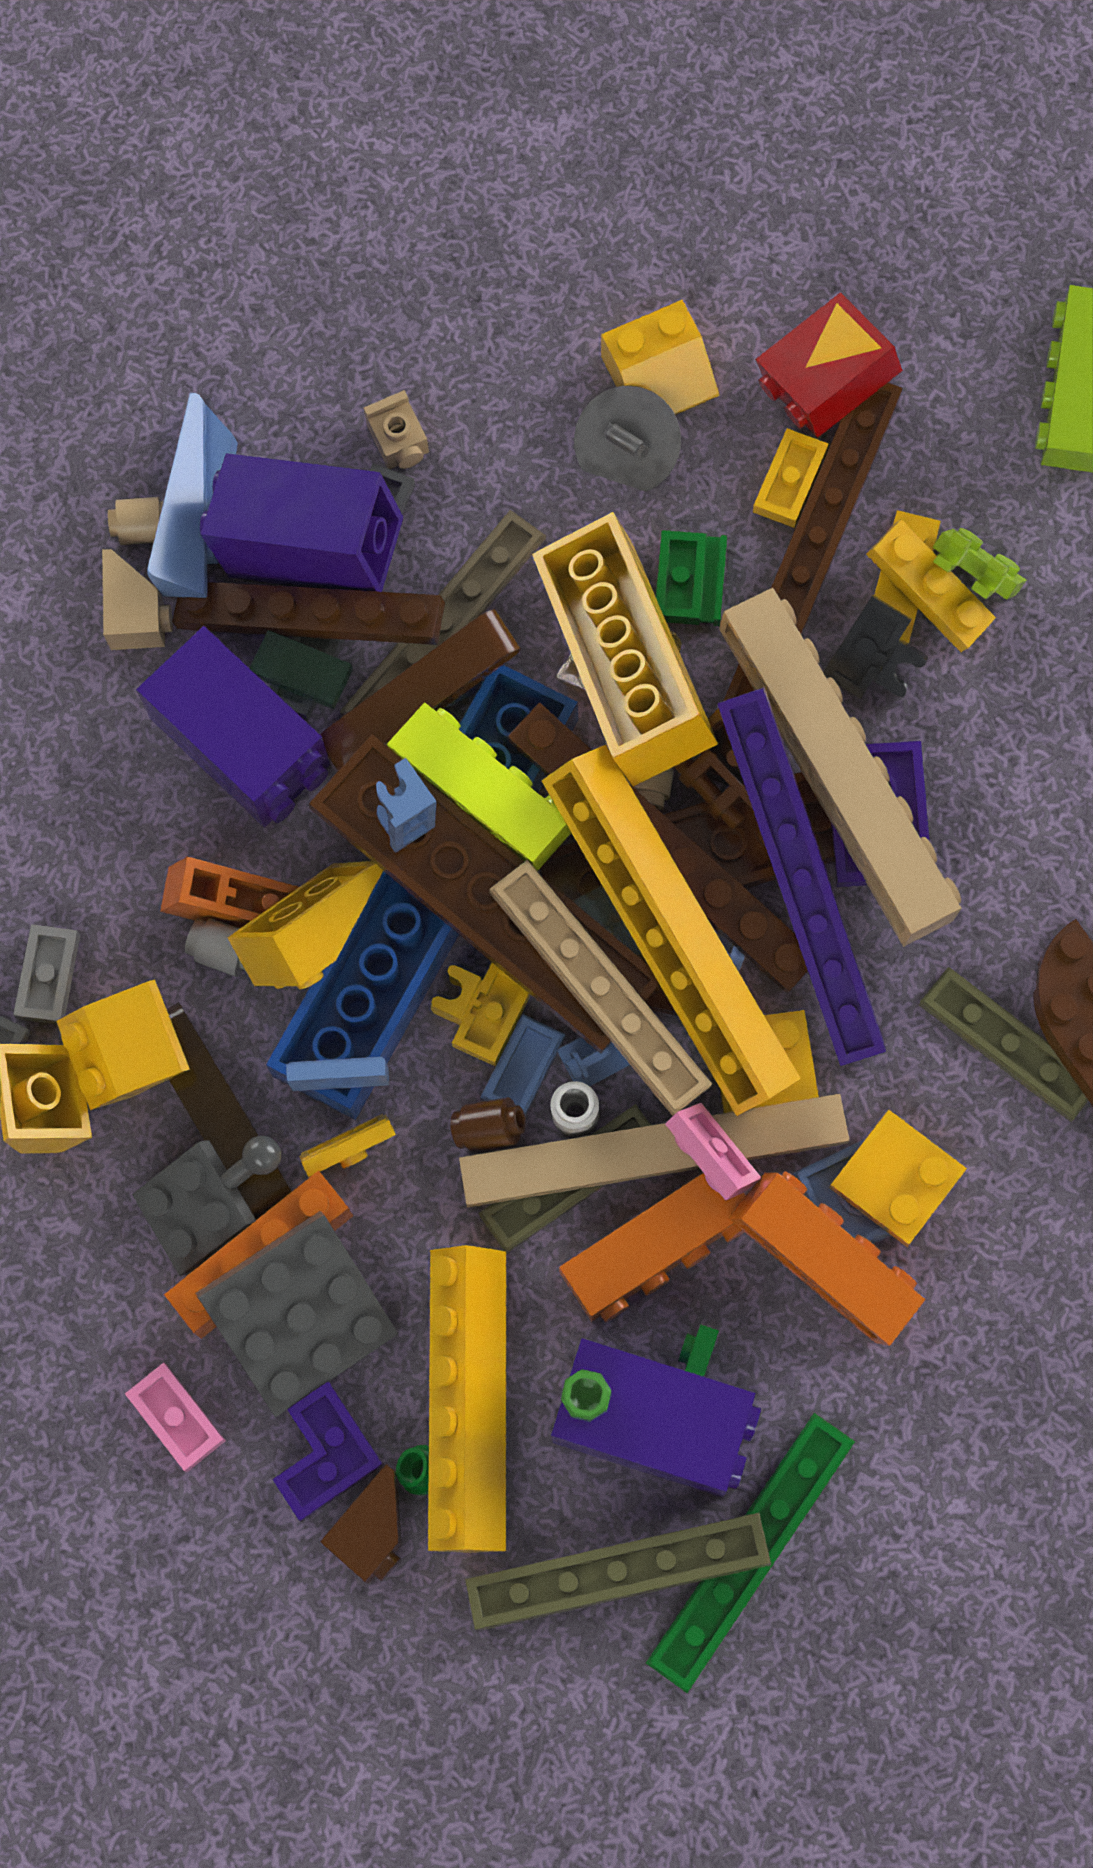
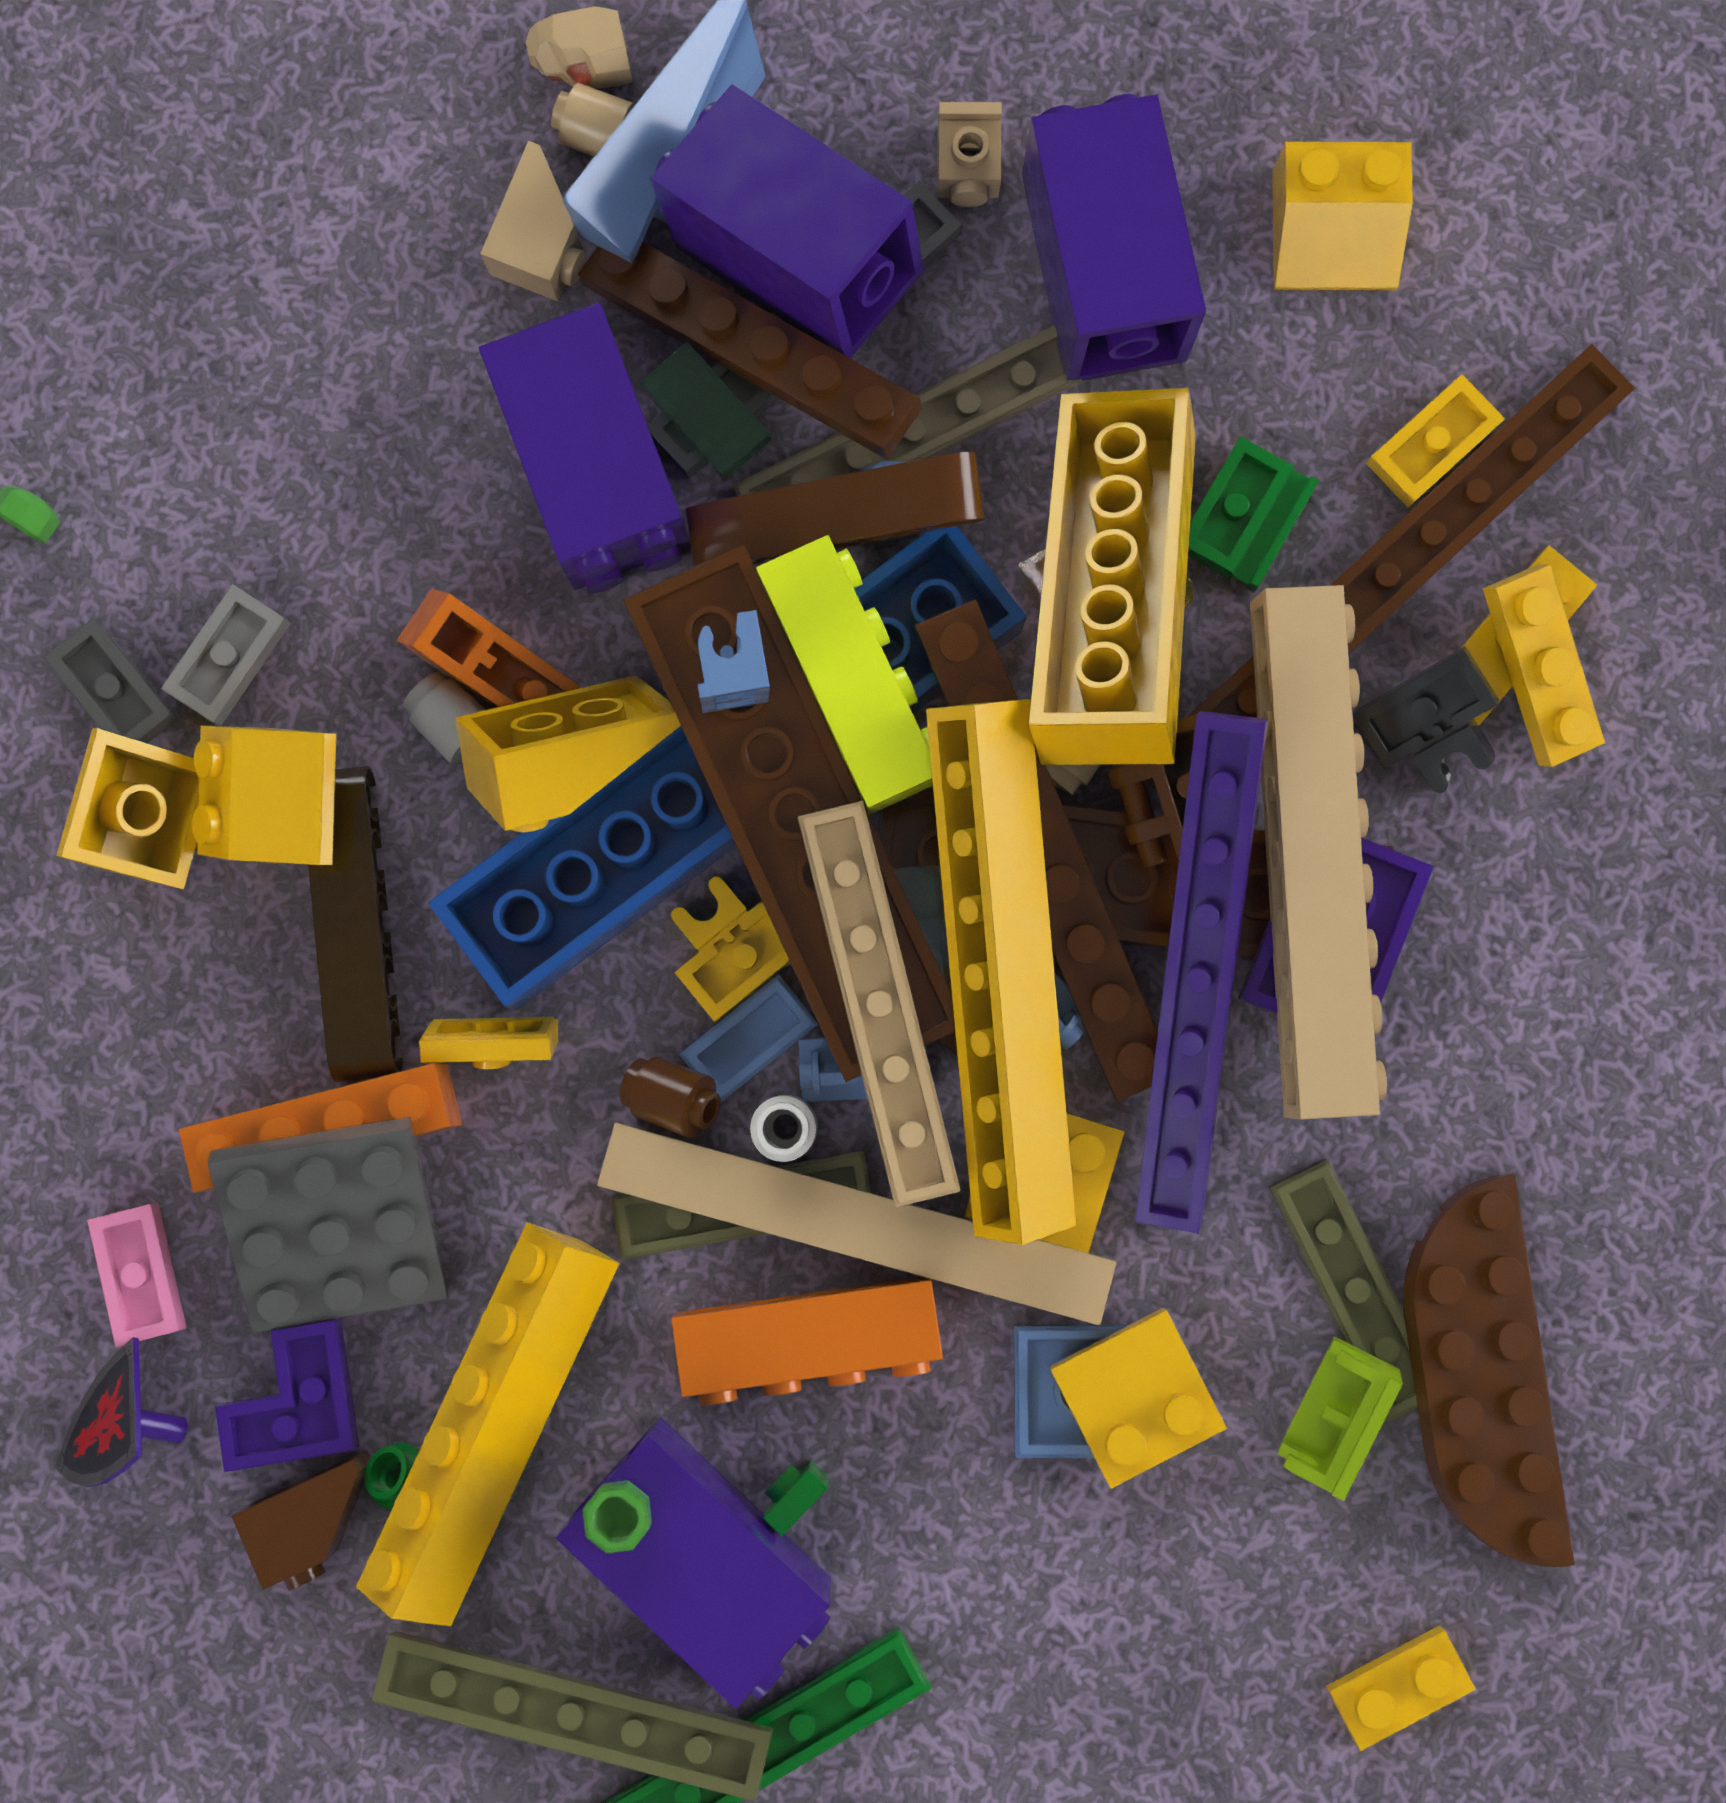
camera: 20 degrees right, 10 degrees up
(108, 477) = (581, 48): none -> tan rock
(197, 1201) = (277, 1030): dark grey plate -> none
(205, 1523) = (111, 1424): none -> shield
(337, 1073) = (504, 961): medium blue tile -> none
(518, 443) = (1112, 237): none -> dark purple brick
(628, 437) = (1261, 293): flat silver shield -> none
(712, 1151) = (923, 1271): bright pink plate -> none
(828, 365) = (1555, 315): red brick -> none
(828, 1257) = (1000, 1461): orange brick -> none
(993, 573) = (1608, 639): lime plate -> none
(1037, 1127) = (1340, 1417): none -> lime hinge

